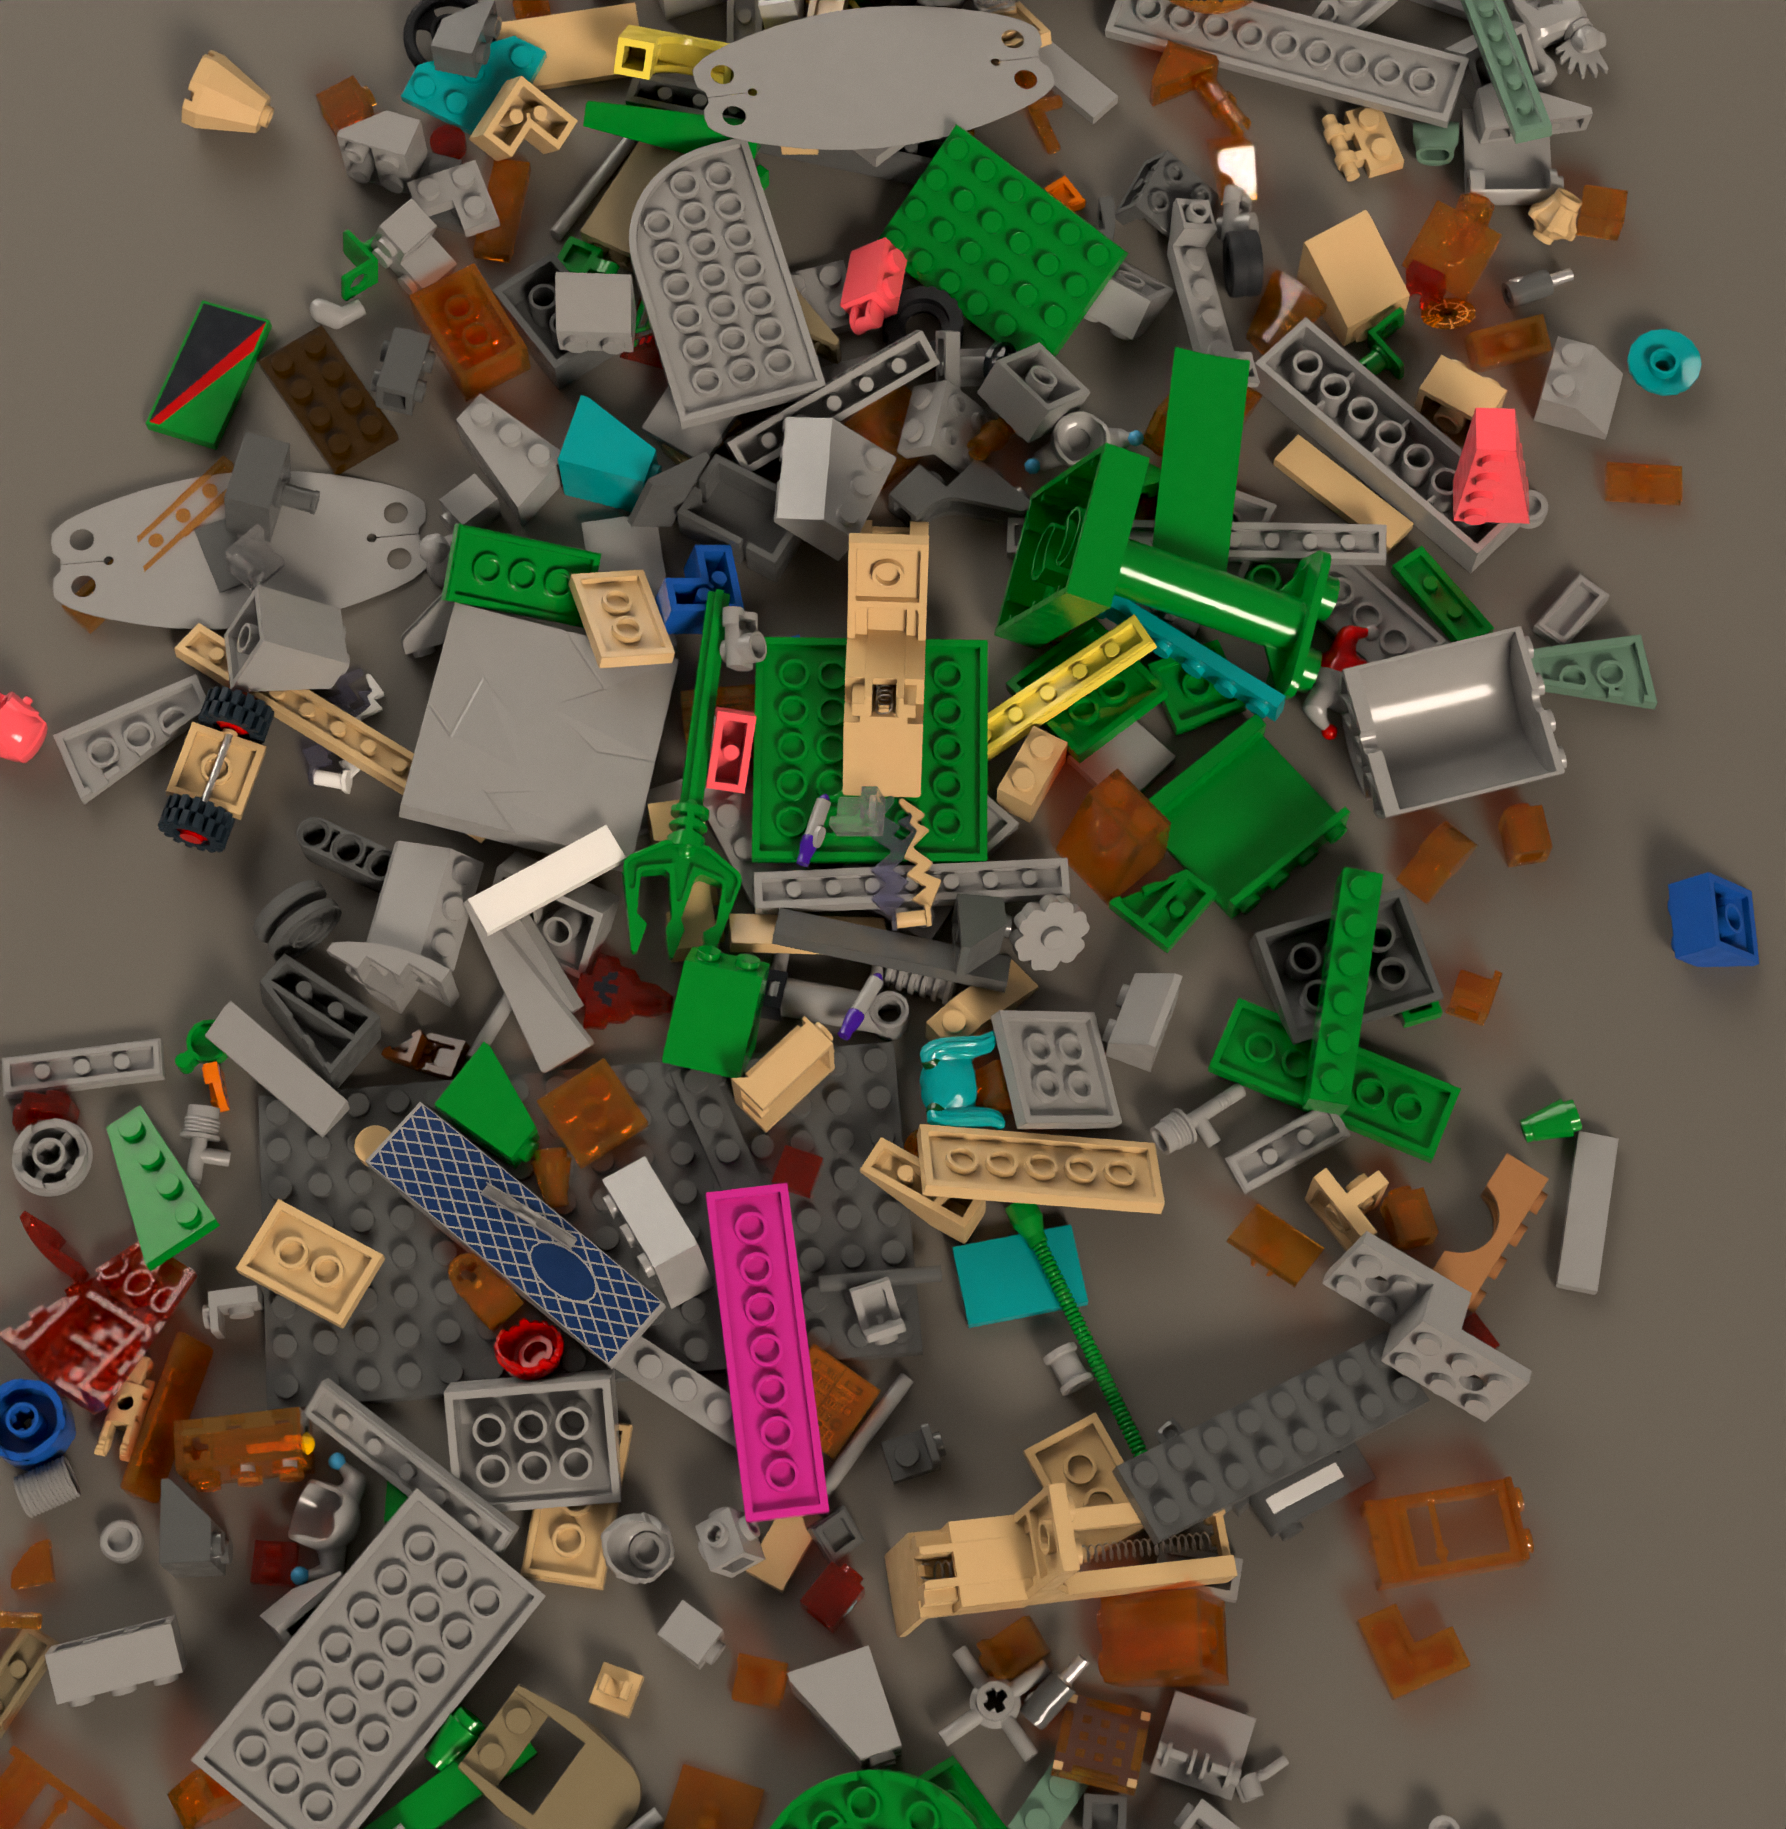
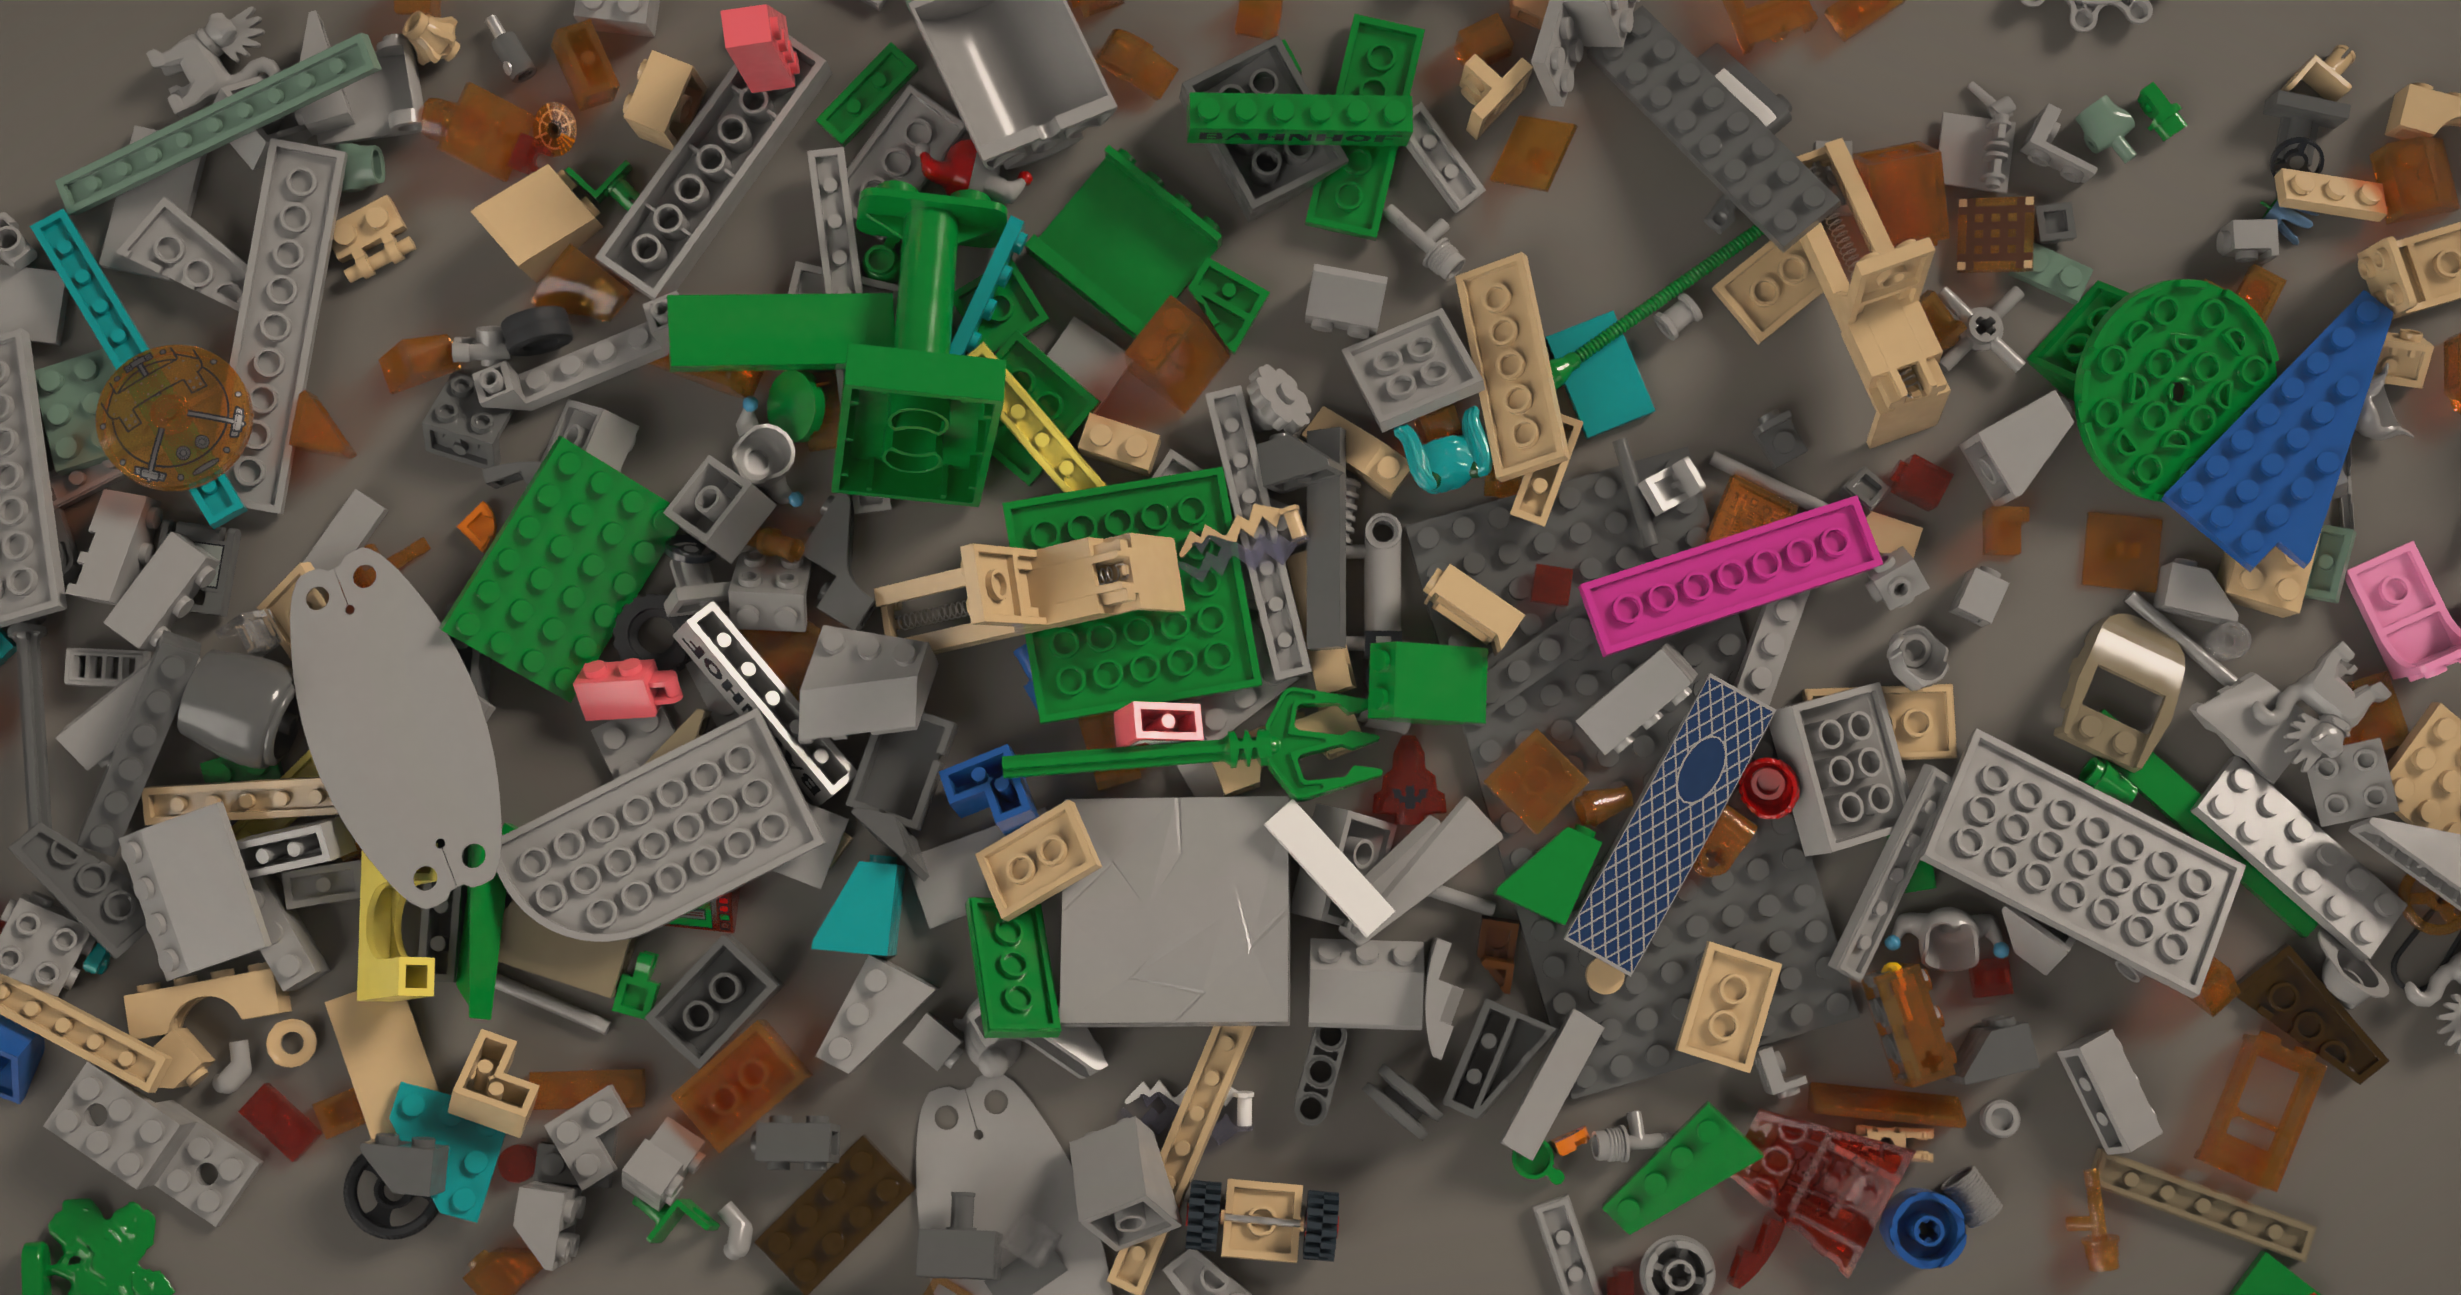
camera: 100 degrees left, 15 degrees up
(34, 1567) = (2038, 1190): clear orange tile -> none
(530, 1216) = (1657, 811): light grey piece -> none
(595, 312) = (722, 951): light grey slope -> none
(616, 1690) = (2034, 654): tan tile -> none
(742, 640) = (1055, 735): light grey plate -> none
(815, 832) = (1230, 628): light grey piece -> none
(860, 814) = (1206, 589): clear panel -> none
(861, 1005) = (1398, 557): piece -> none
(1053, 1693) = (1964, 281): dark grey piece -> none
(1222, 105) = (350, 381): clear orange pin -> none
(1340, 490) = (766, 205): tan tile -> none

